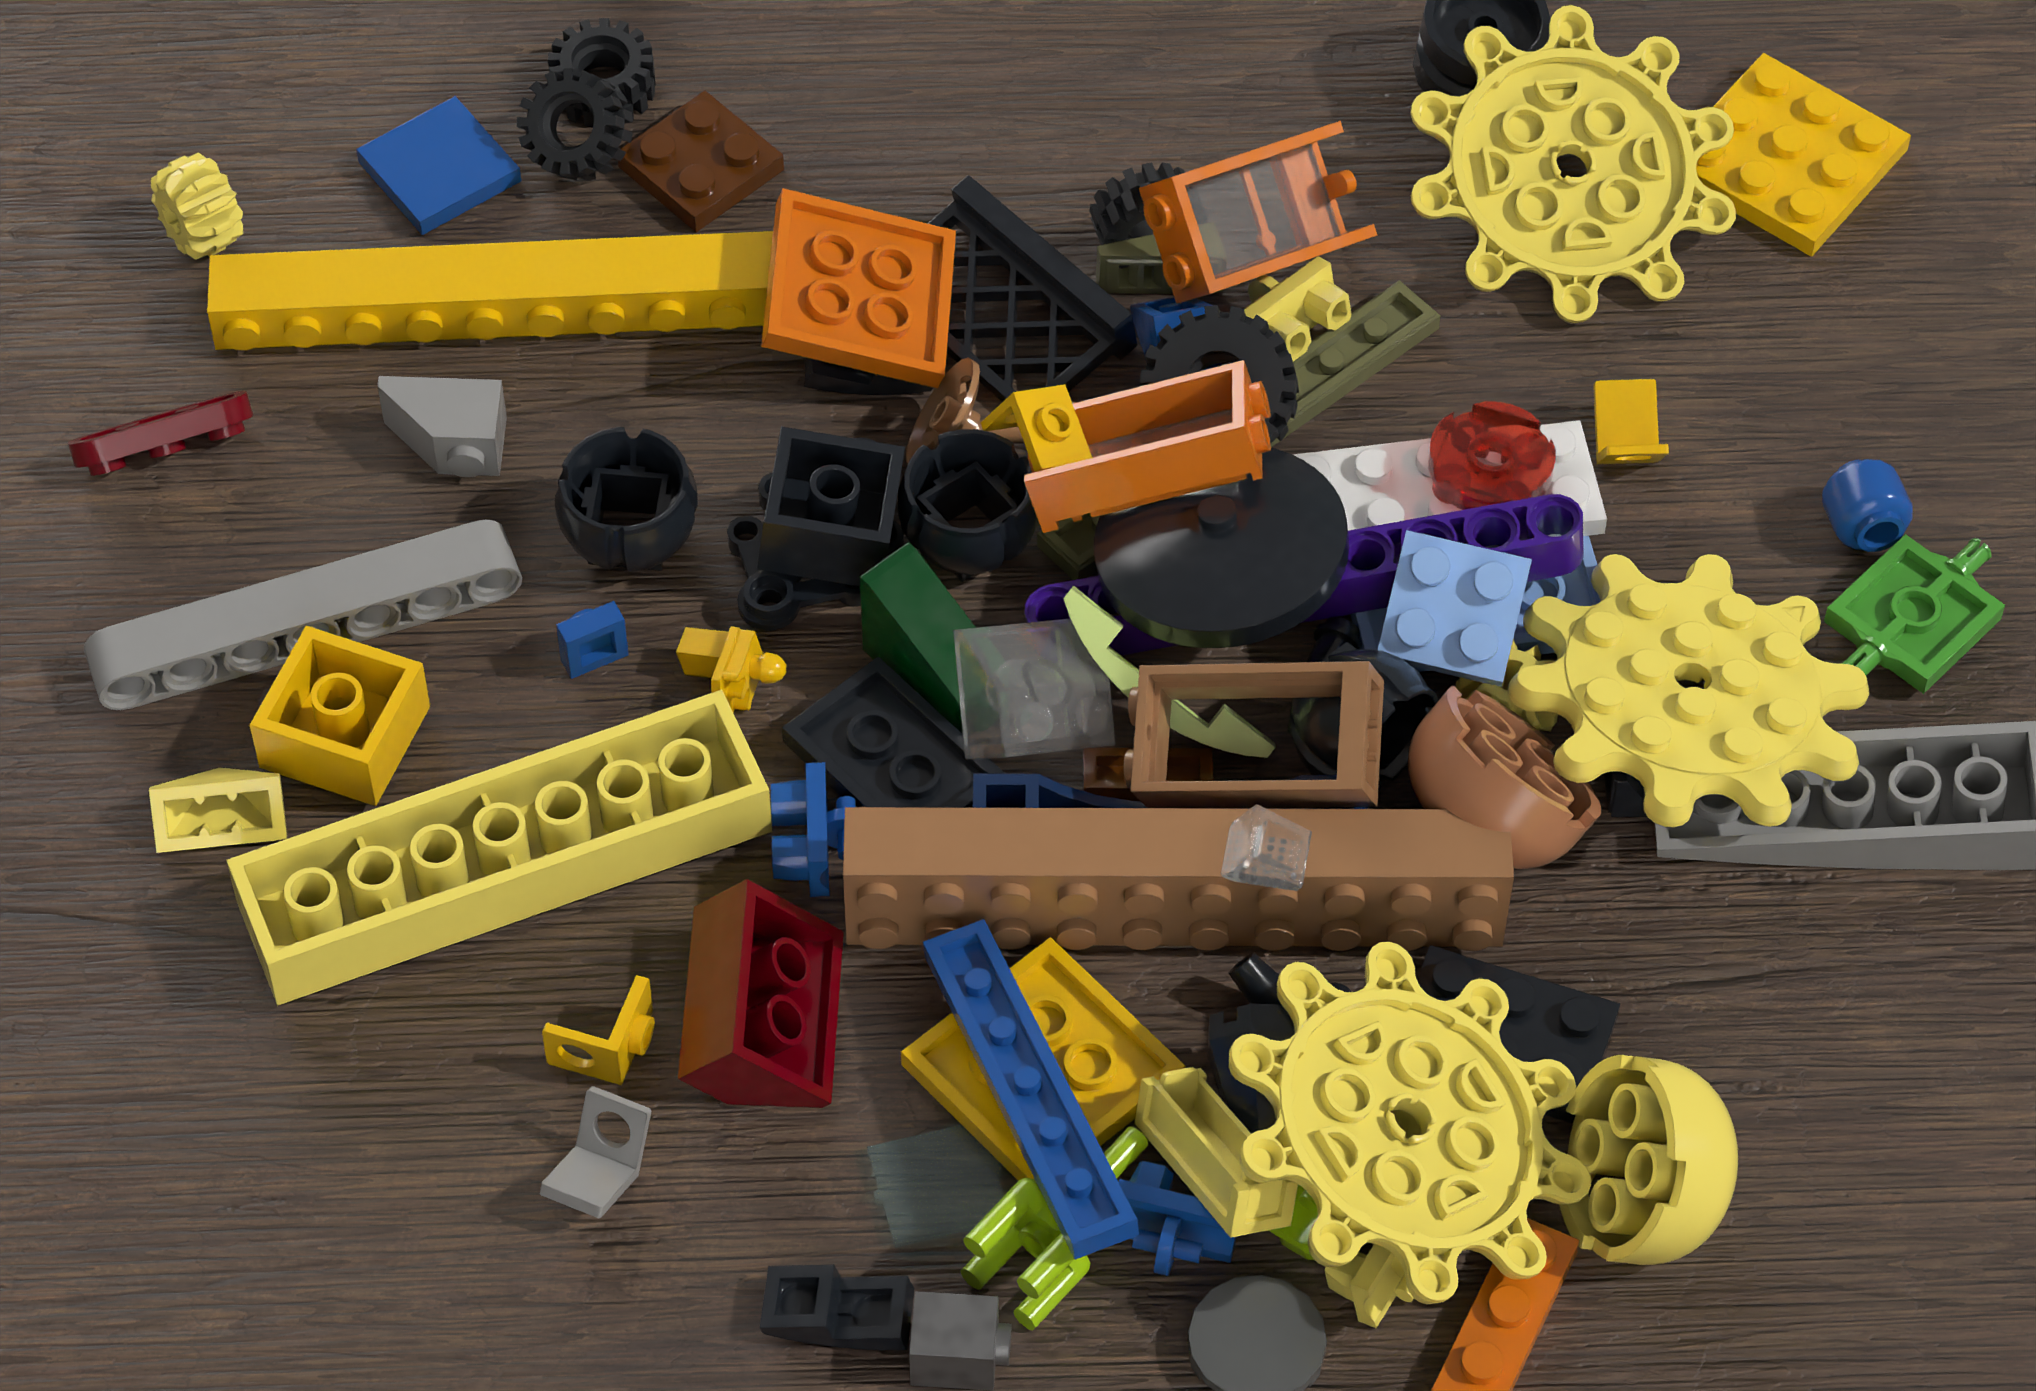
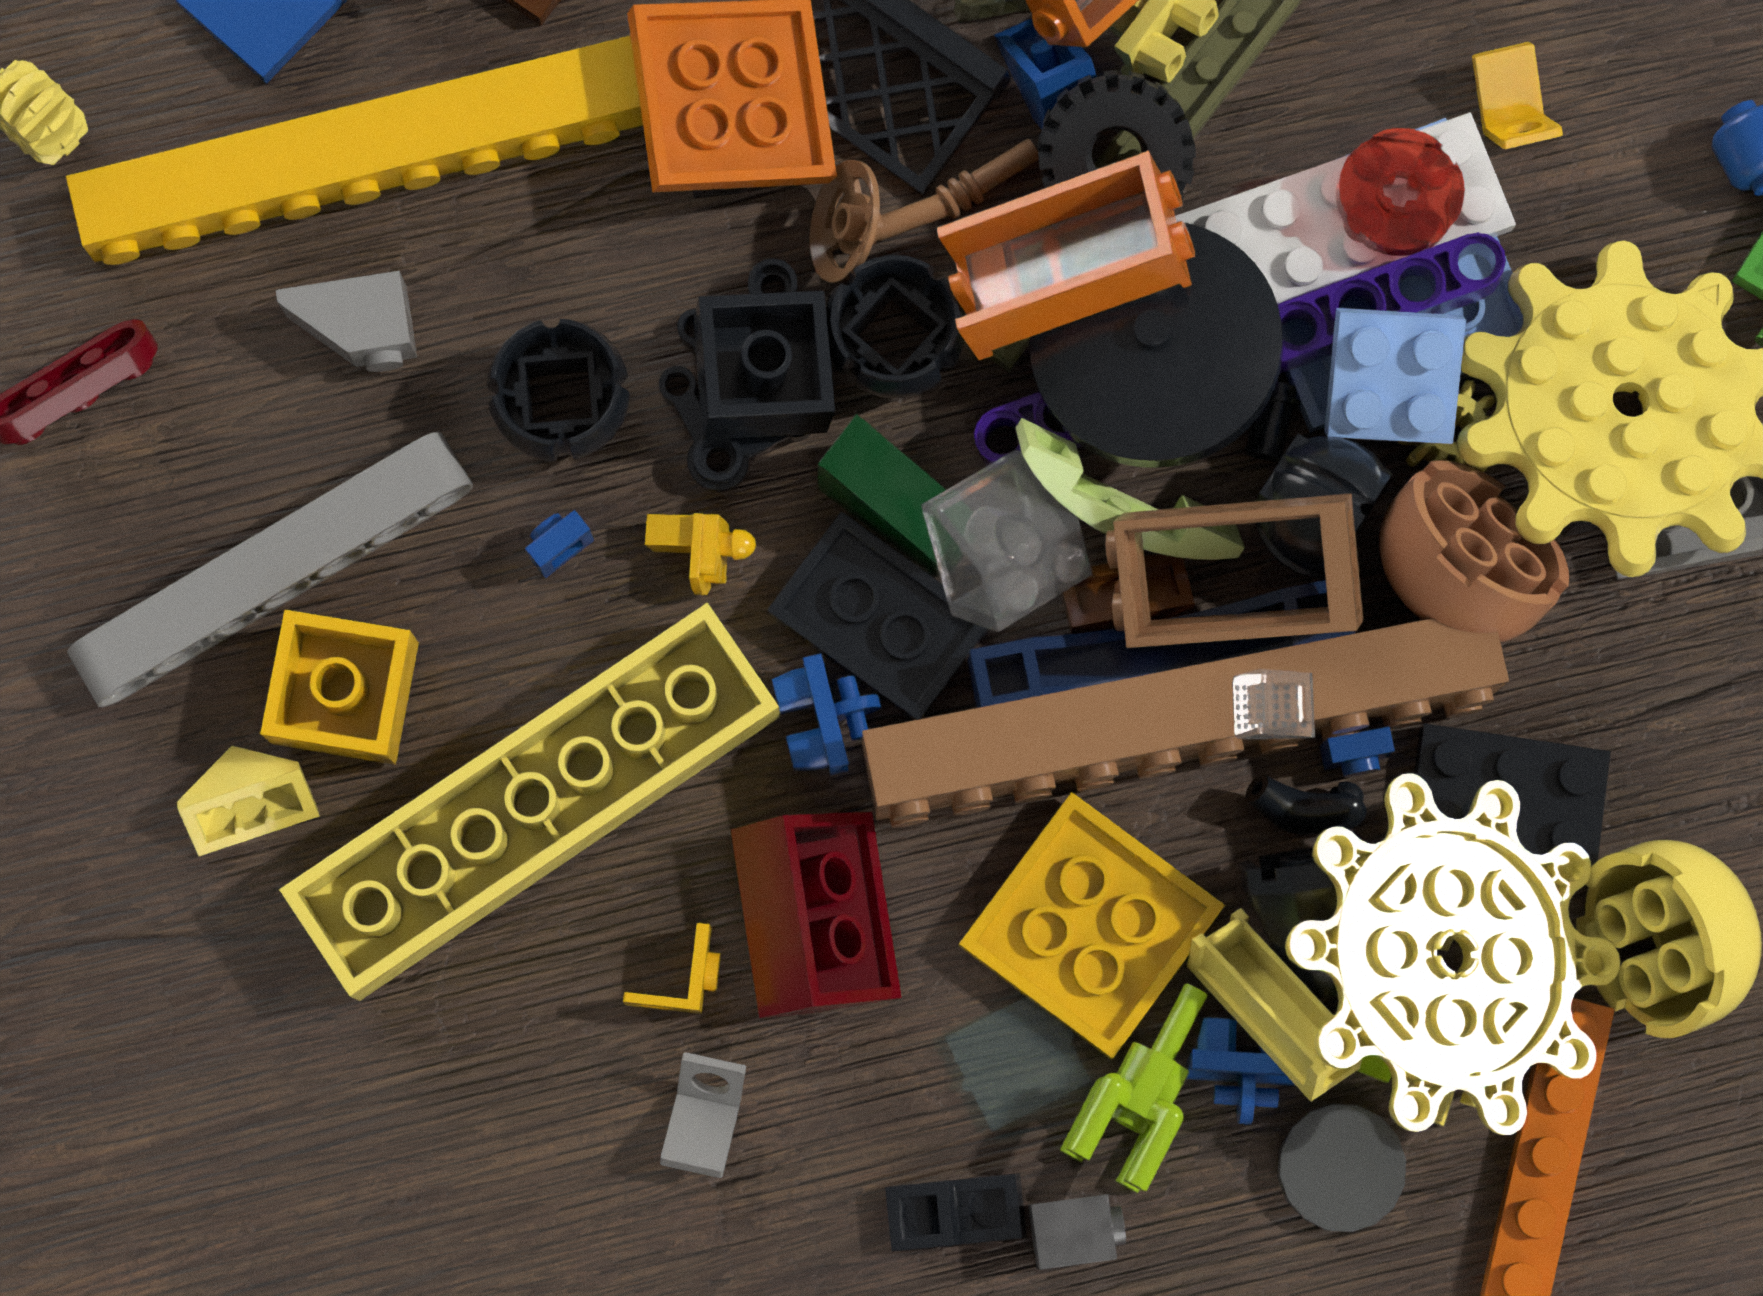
camera: 15 degrees left, 25 degrees up
(1031, 1090) = (1094, 979): blue plate -> none
(1046, 425) = (962, 250): yellow bracket -> none
(1345, 950) = (1357, 752): none -> blue plate

